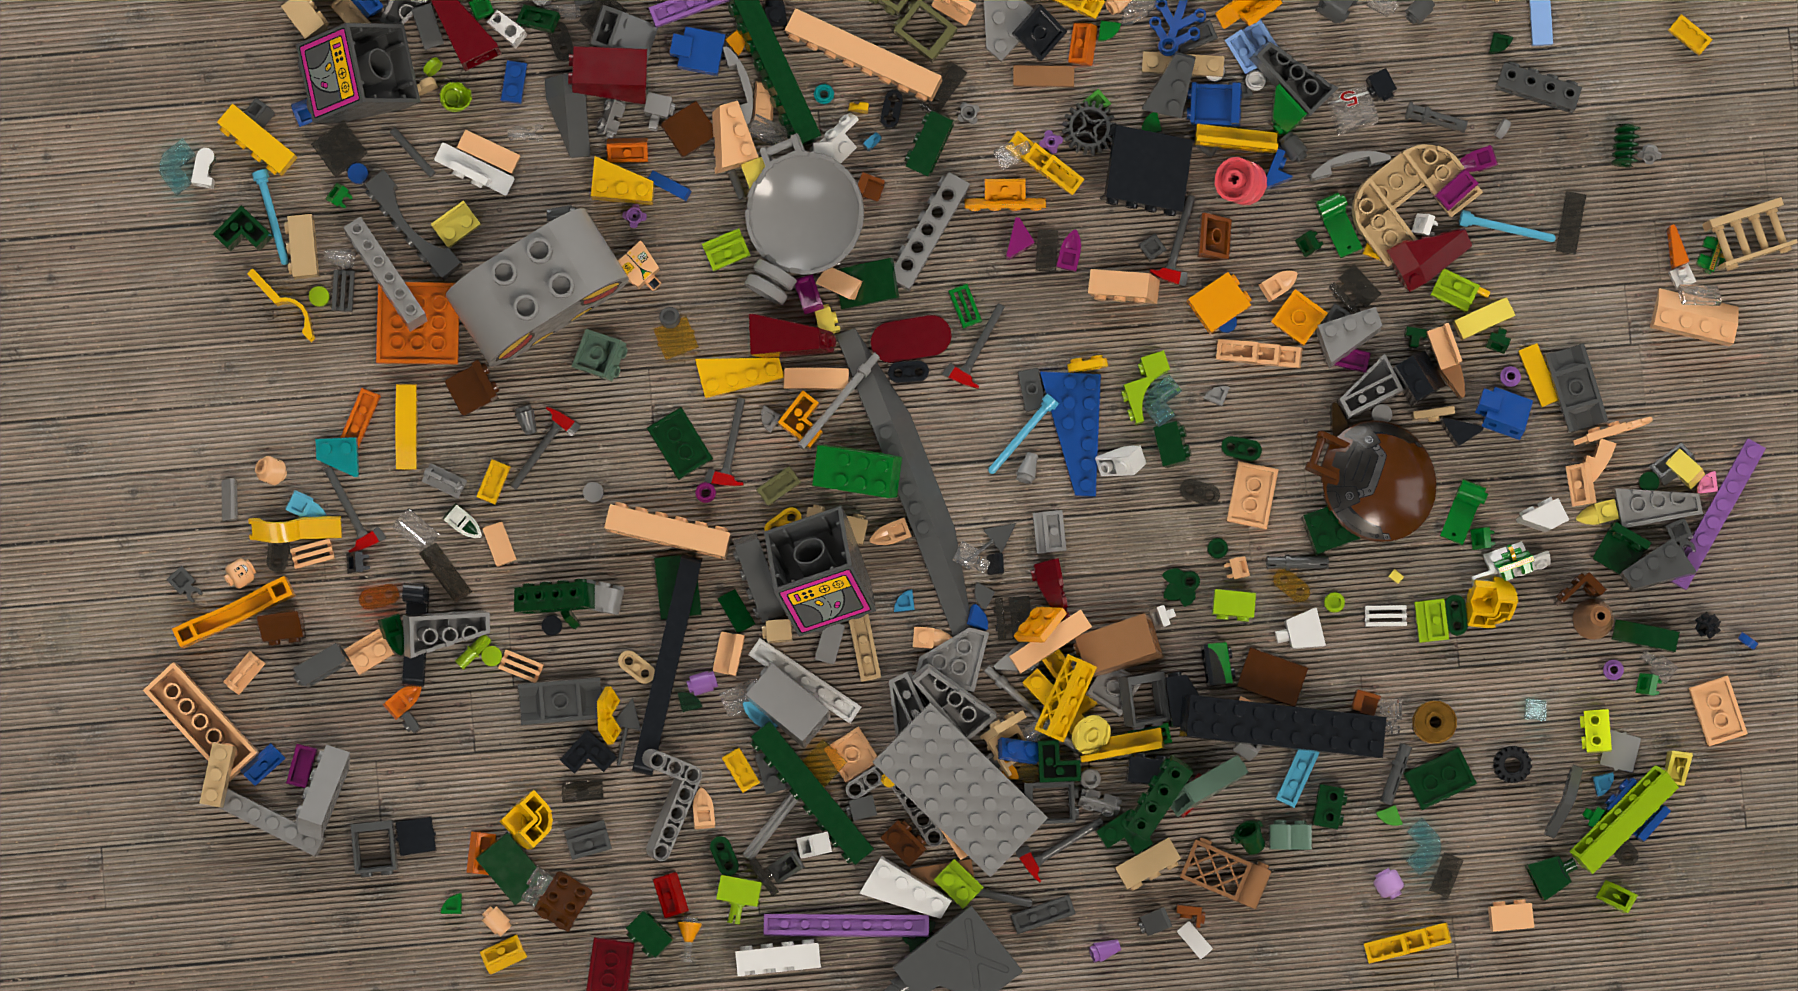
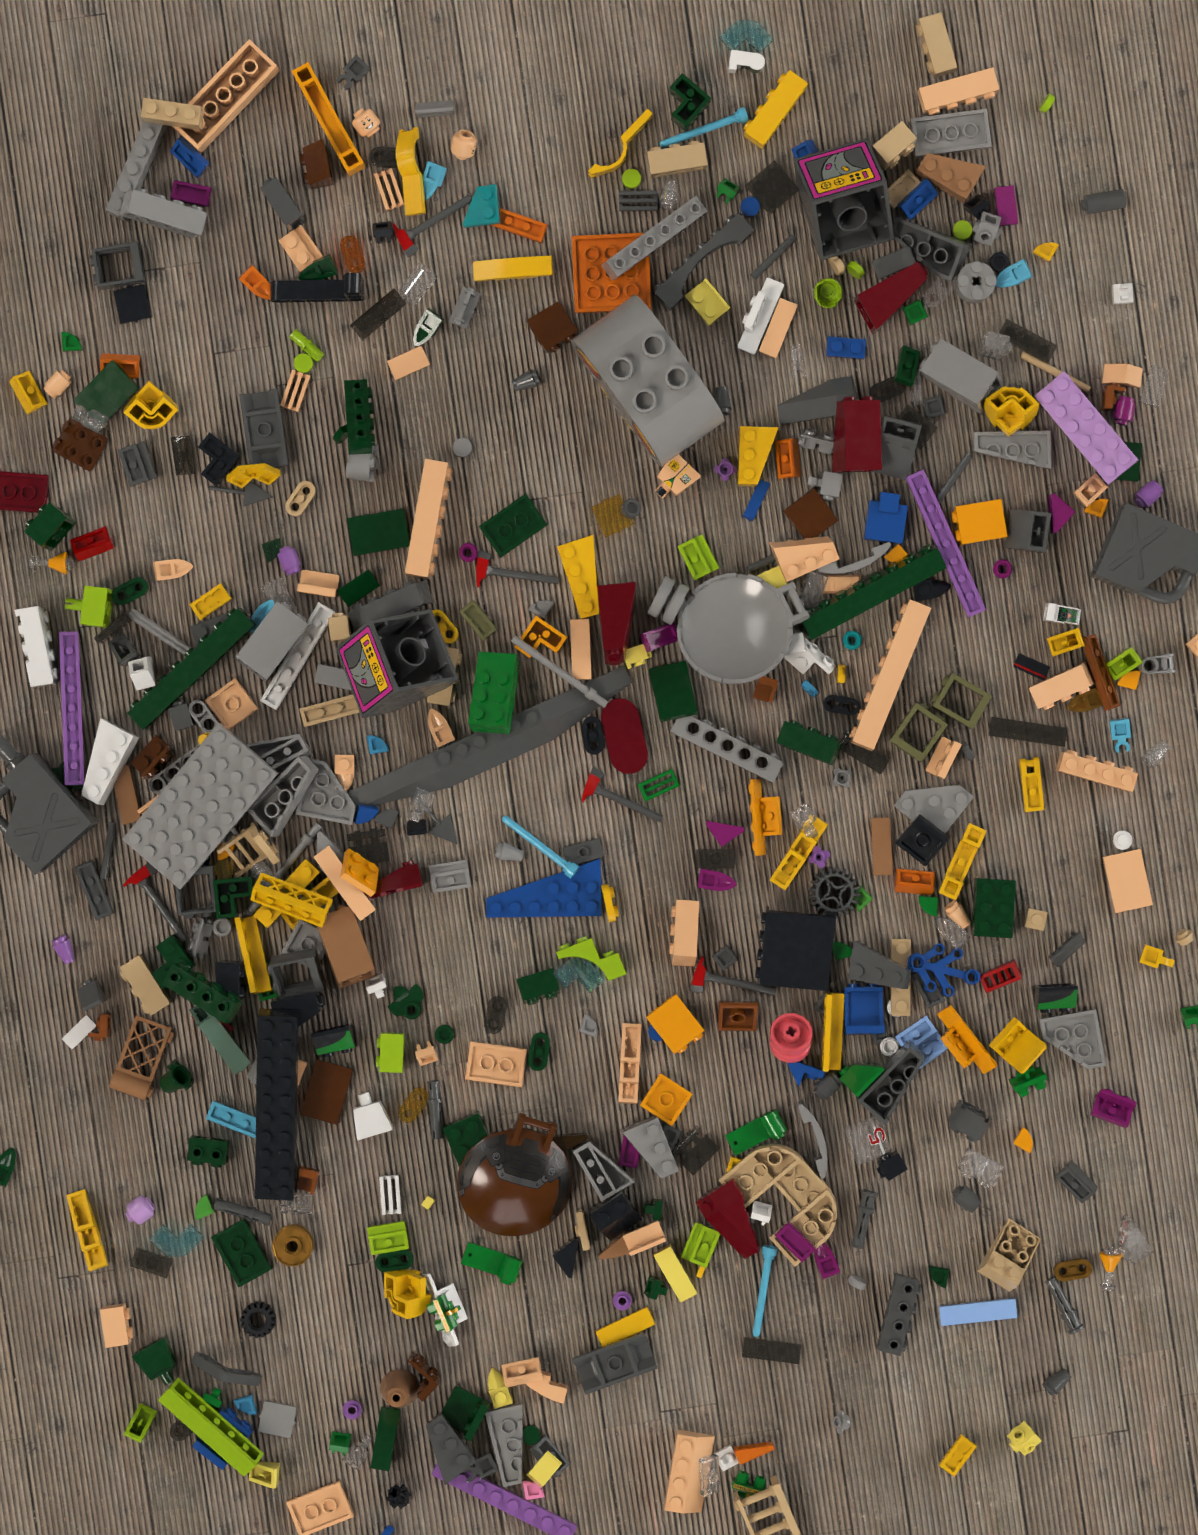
camera: 95 degrees right, 5 degrees up
(244, 673) = (273, 133): light nougat hinge -> none
(259, 112) = (802, 110): dark grey slope -> none
(410, 723) = (236, 291): dark grey plate -> none
(436, 630) = (321, 309): light grey wedge -> none
(493, 482) = (466, 353): yellow plate -> none
(507, 28) = (895, 337): white leg -> none
(551, 625) = (335, 417): black tile -> none
(560, 422) = (526, 411): dark grey piece -> none
(600, 355) = (590, 445): sand green plate -> none
(668, 660) = (304, 526): black beam -> none
(672, 801) = (158, 535): light grey beam -> none
(824, 762) = (221, 678): clear yellow piece -> none
(840, 283) = (671, 666): light nougat slope -> none
(958, 884) = (116, 810): lime plate -> none
(1018, 750) = (242, 858): blue plate -> none
(1091, 734) = (260, 925): light yellow tile -> none
(1121, 461) = (519, 940): white slope -> none
(1278, 284) = (696, 1078): light nougat plate -> none
(1290, 836) = (178, 1116): sand green brick -> none
(1308, 243) = (736, 1105): dark green tile -> none
(1334, 602) = (400, 1146): lime tile -> none
(1381, 413) = (580, 1181): light grey tile -> none
(1481, 538) = (467, 1280): green tile -> none
(1504, 412) = (587, 1297): blue piece -> none
(1535, 709) = (310, 1338): clear light blue slope -> none
(1546, 517) = (491, 1341): white slope -> none
(1597, 731) = (293, 1397): neon yellow brick -> none
(1613, 429) = (577, 1399): light nougat plate -> none
(1625, 145) = (848, 1399): dark green piece -> none

